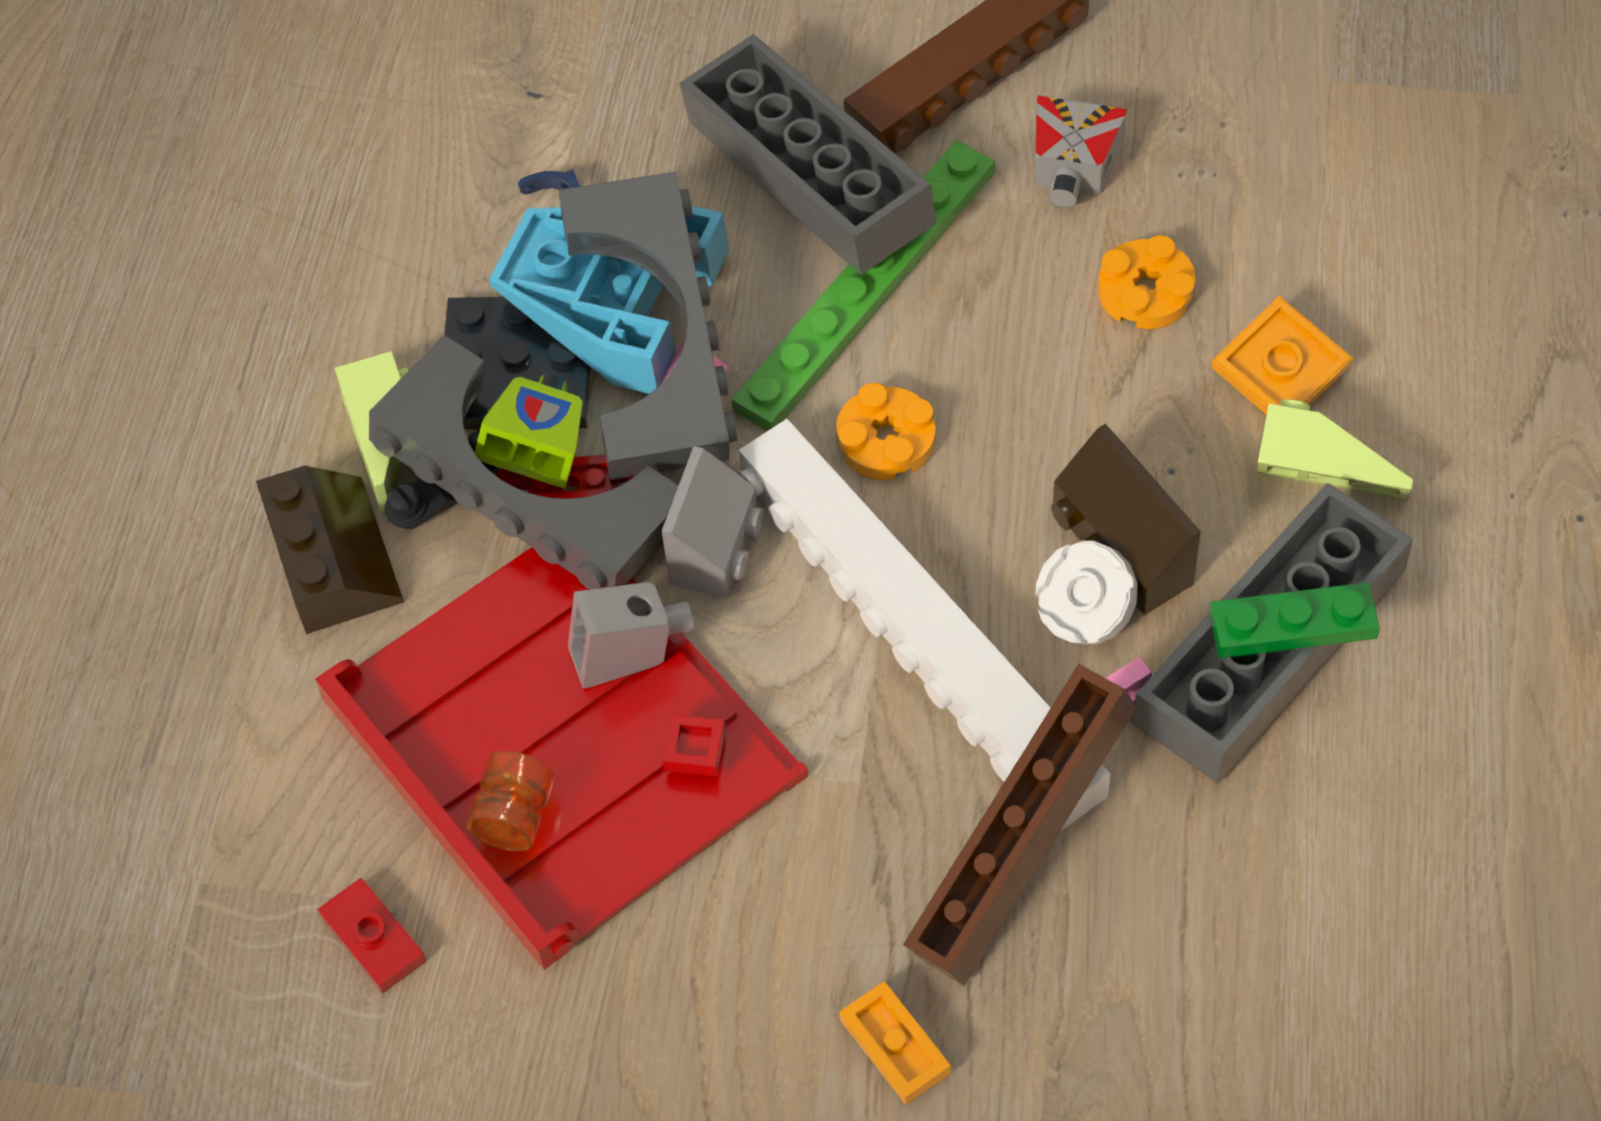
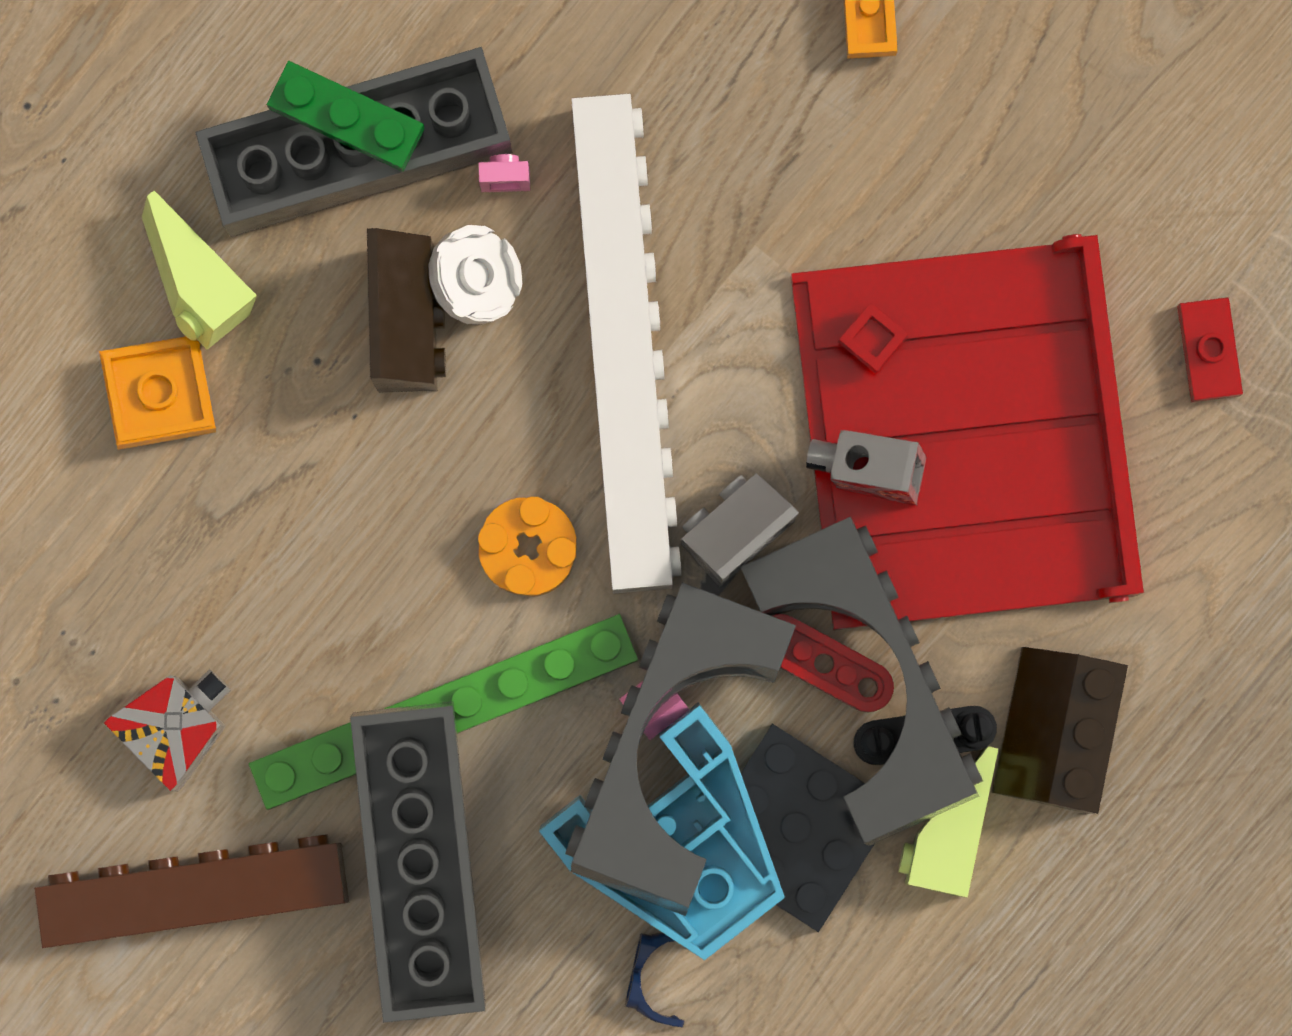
camera: 155 degrees left, 25 degrees up
(510, 803) = (1046, 375): clear orange wheel -> none
(532, 430) = (832, 711): lime torso -> none
(1020, 824) = (674, 83): reddish brown brick -> none
(1151, 259) = (190, 528): light orange plate -> none

